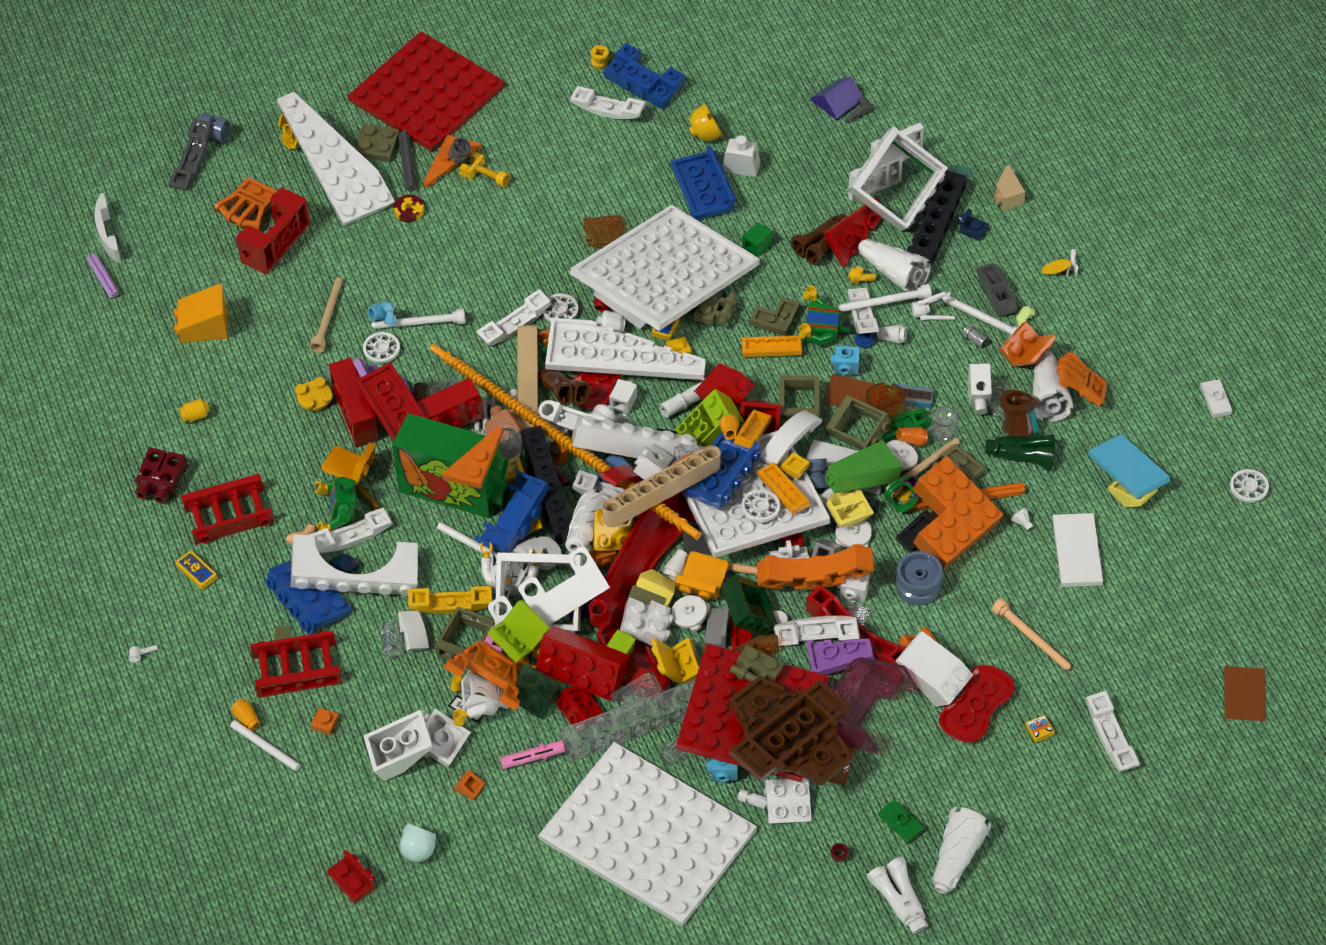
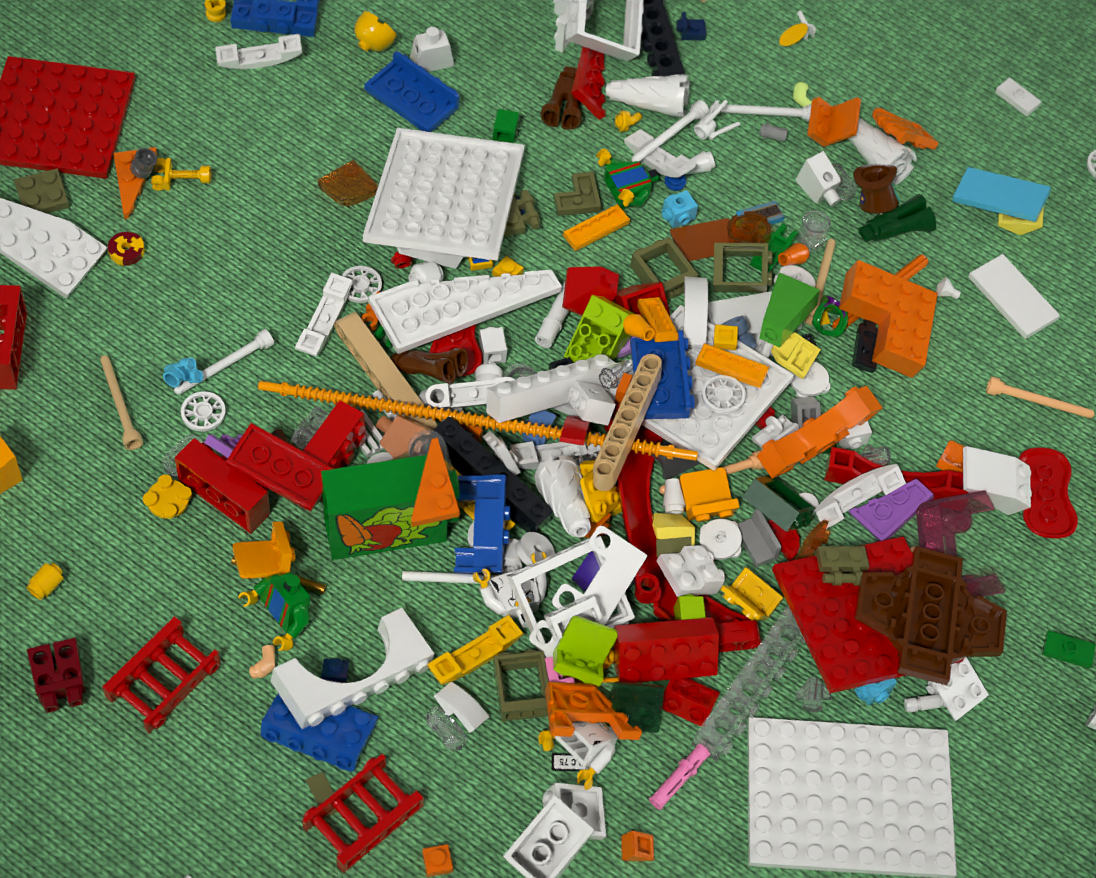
camera: 40 degrees left, 5 degrees up
(196, 570) = (173, 762): tile -> none
(353, 534) = (320, 628): white slope -> none
(406, 159) = (88, 198): dark grey axle -> none
(536, 601) = (584, 607): none -> white hinge
(565, 471) = (501, 452): none -> white wing
(640, 688) = (739, 650): clear hinge -> none
(836, 848) = (1046, 716): dark red hinge -> none
(919, 578) = (907, 394): sand blue wheel -> none
(964, 462) = (845, 259): olive plate -> none
(997, 289) = (759, 79): dark grey slope -> none

